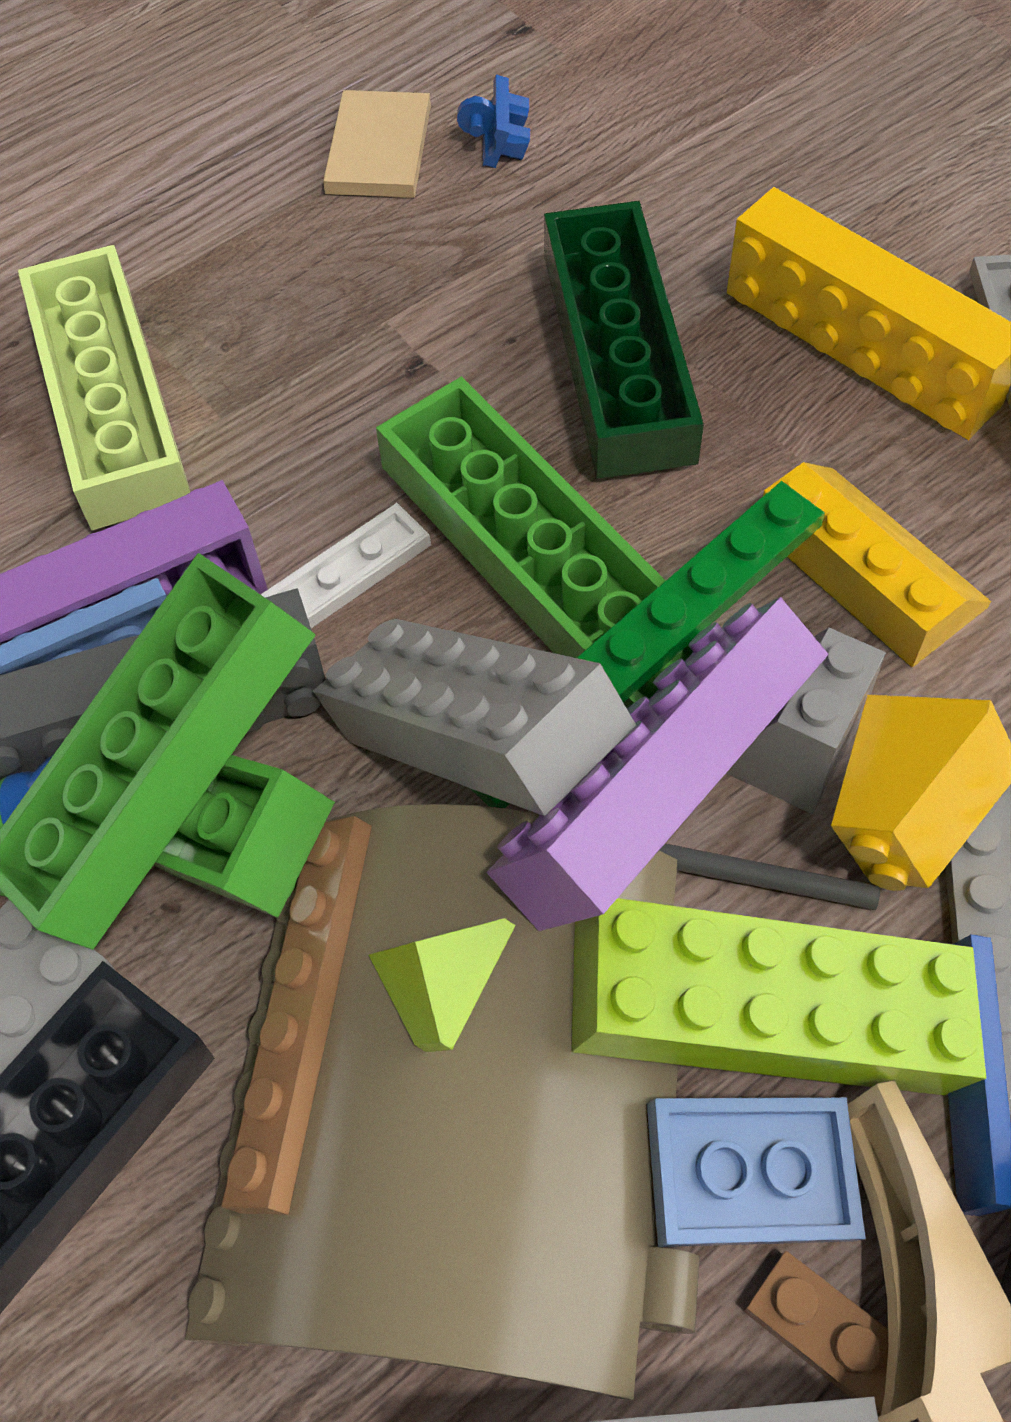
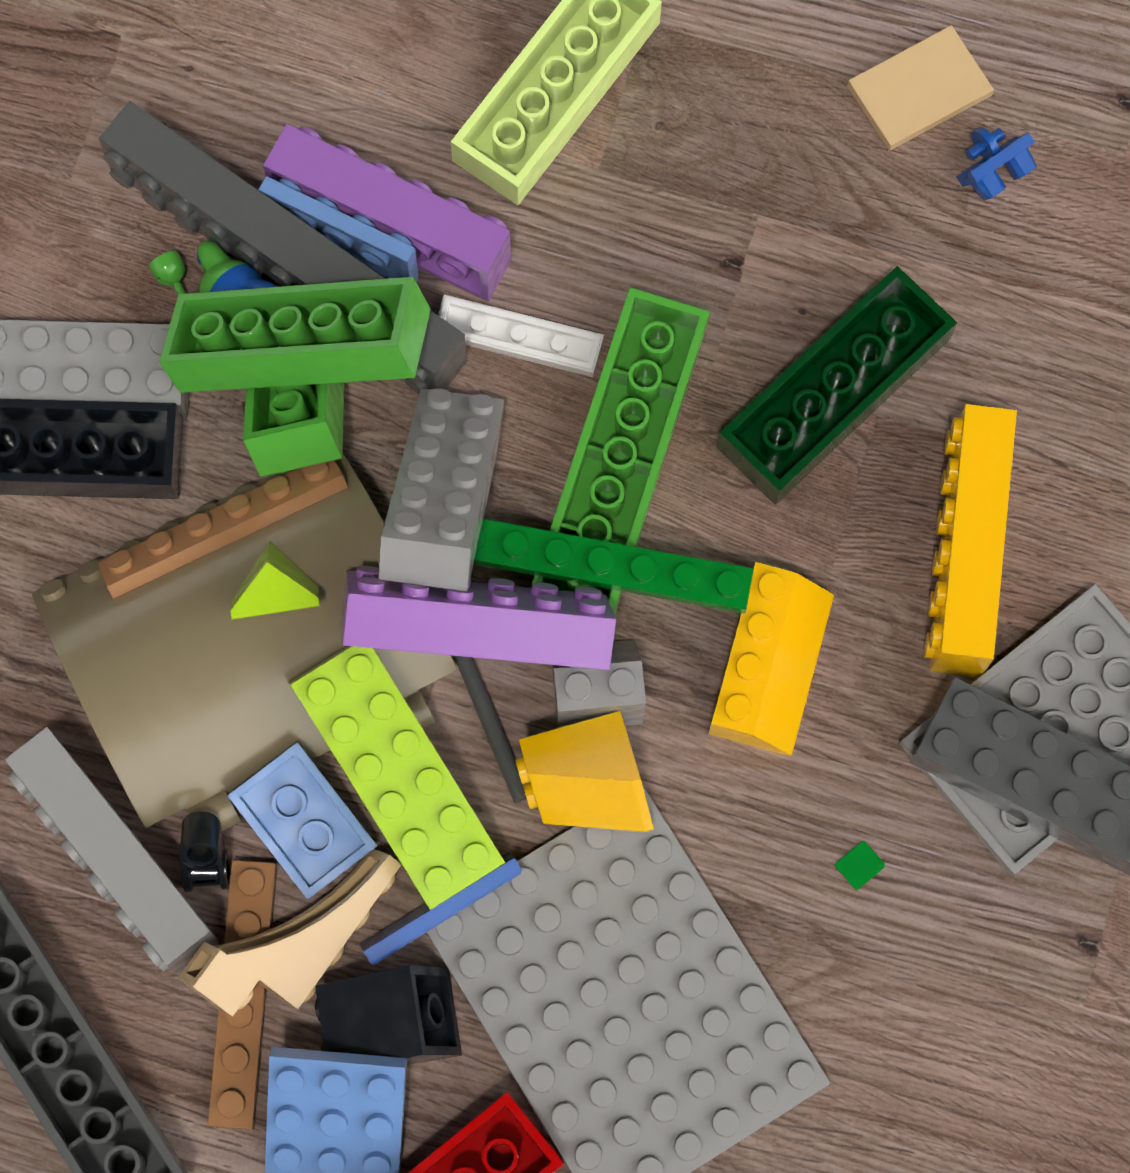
camera: 50 degrees right, 15 degrees up
(720, 1338) = (203, 852): none -> black piece

